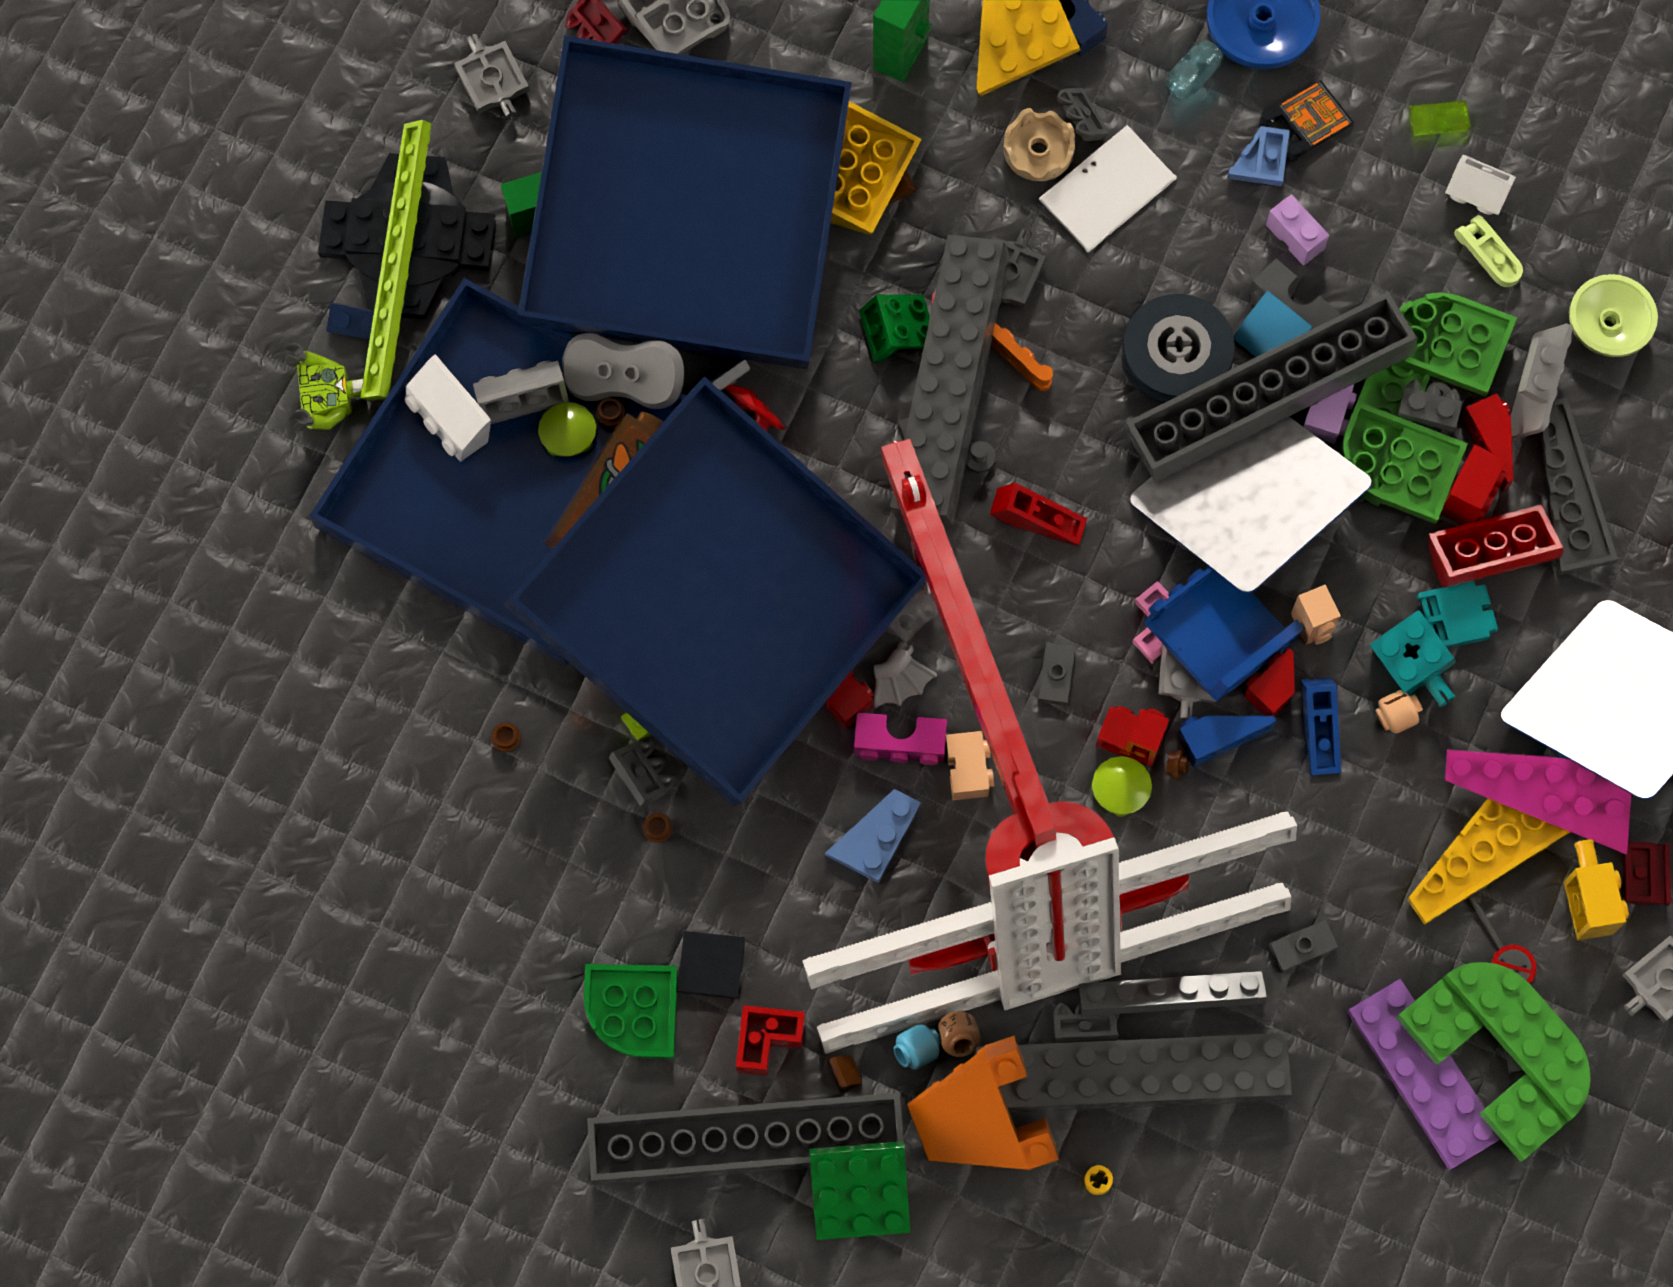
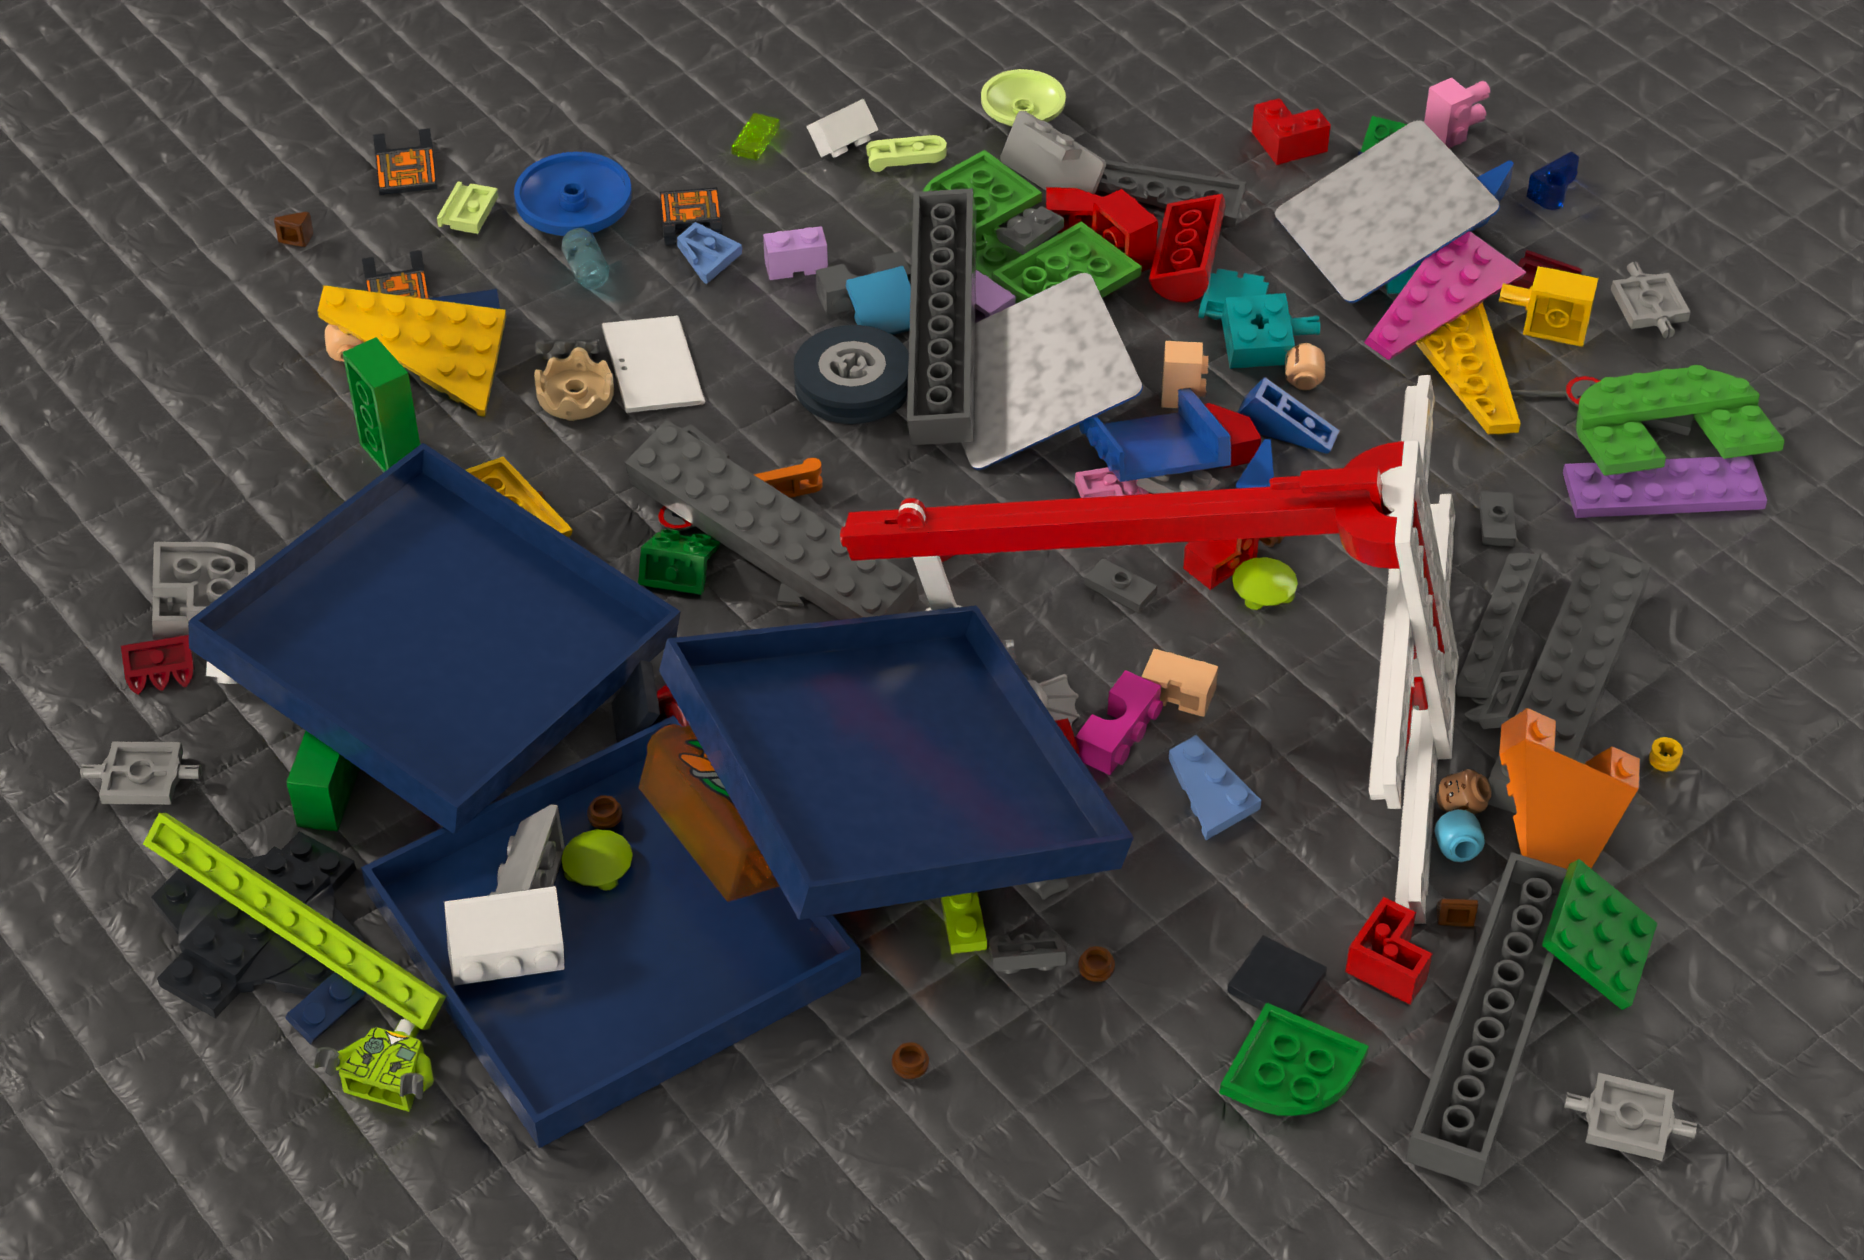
camera: 65 degrees left, 25 degrees down
(642, 372) = (590, 752): light grey plate -> none

